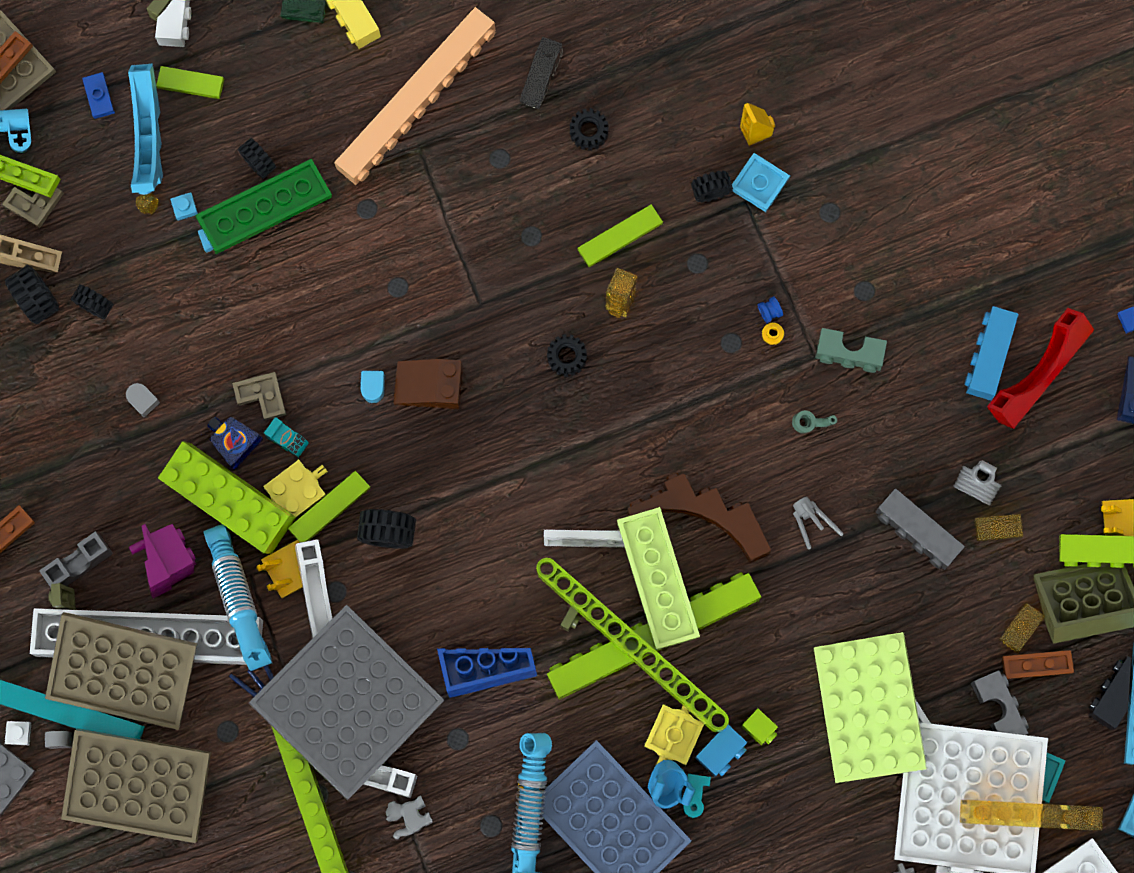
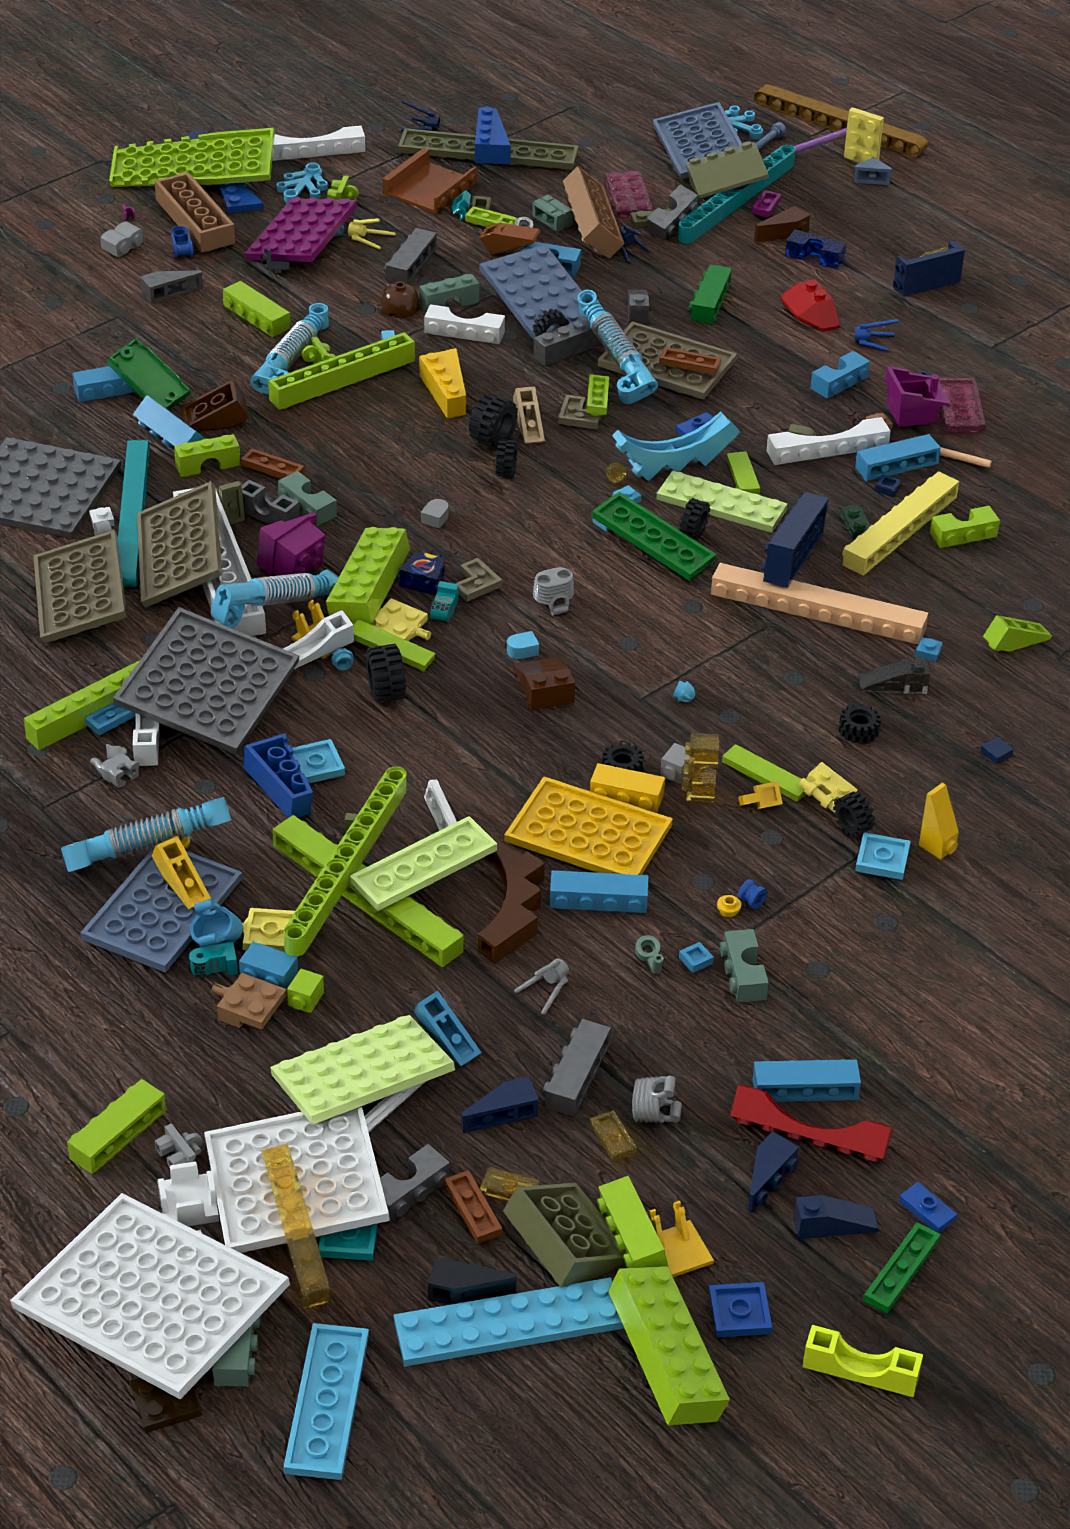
camera: 65 degrees right, 35 degrees down
(91, 515) = (299, 488): none -> sand green arch
(225, 120) = (724, 501): none -> yellowish green plate
(313, 329) = (552, 585): none -> light grey piece
(331, 559) = (342, 659): none -> medium azure plate
(336, 806) = (108, 718): none -> dark azure plate
(338, 81) = (795, 539): none -> dark blue brick
(469, 627) = (319, 761): none -> medium azure plate
(492, 265) = (684, 692): none -> medium azure plate
(508, 25) = (928, 649): none -> dark azure plate
(587, 309) = (673, 763): none -> light grey brick
(592, 797) = (180, 872): none -> yellow slope
(603, 364) = (628, 786): none -> yellow brick
(642, 417) = (588, 829): none -> yellow plate
(655, 251) = (765, 795): none -> yellow plate
(659, 187) = (826, 786): none -> light yellow plate
(660, 28) = (996, 750): none -> dark blue tile
(724, 436) = (599, 891): none -> dark azure brick
(757, 778) = (248, 1001): none -> medium nougat plate
(826, 385) = (696, 957): none -> dark azure plate
(843, 622) = (446, 1029): none -> dark azure slope
(940, 599) = (503, 1105): none -> dark blue slope
(1069, 417) = (773, 1162): none -> dark blue slope

